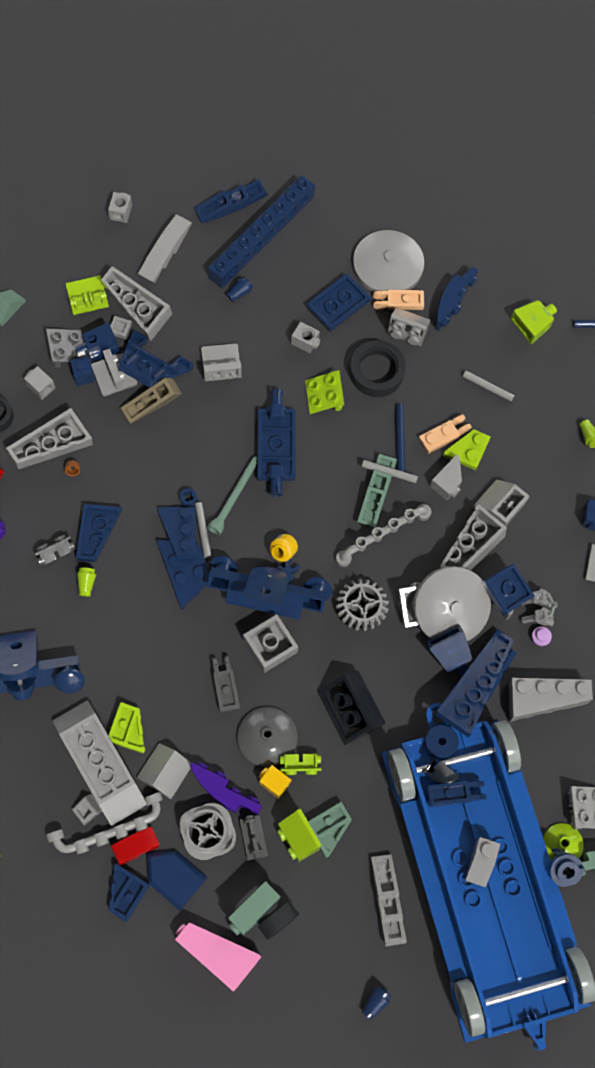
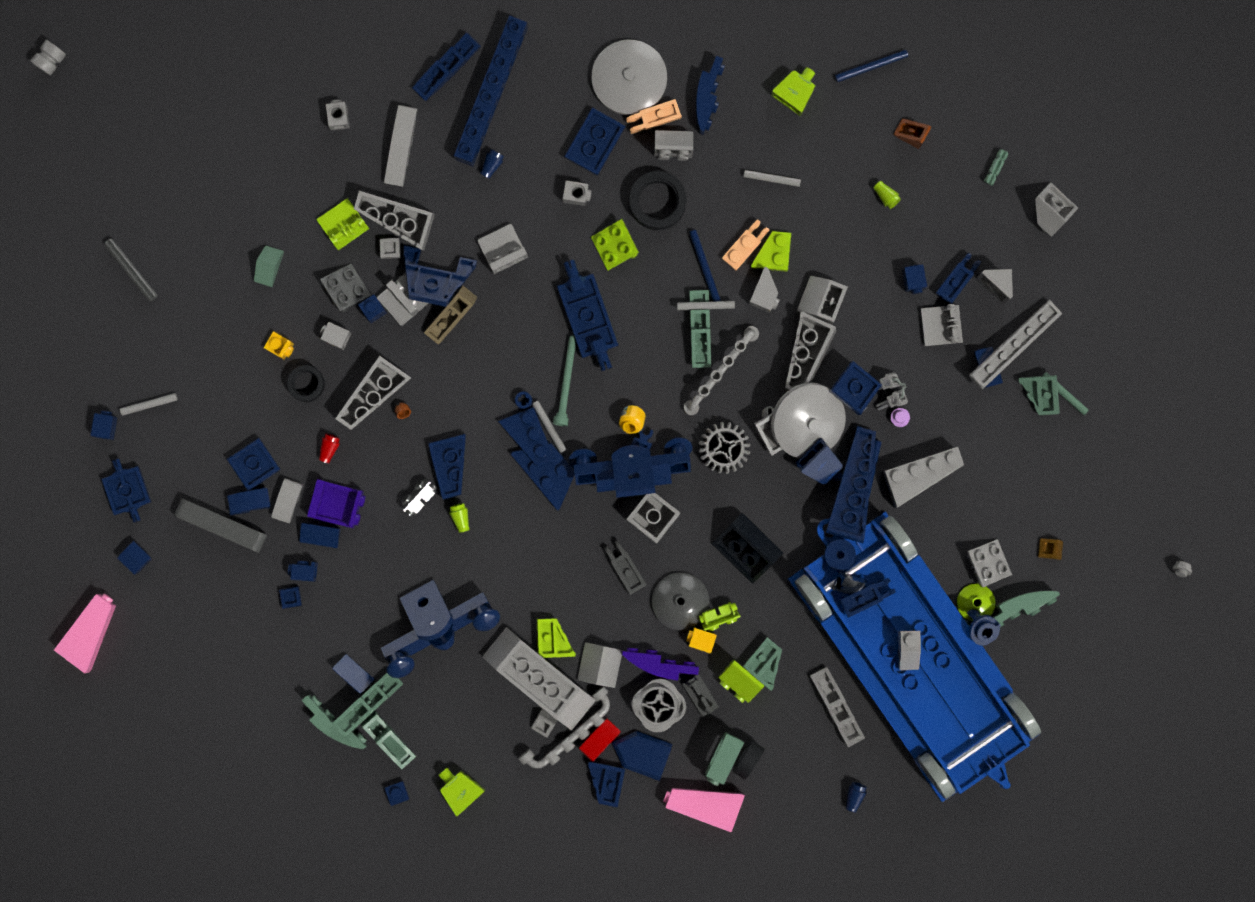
camera: 15 degrees left, 15 degrees up
(97, 341) = (382, 270): dark blue torso -> none

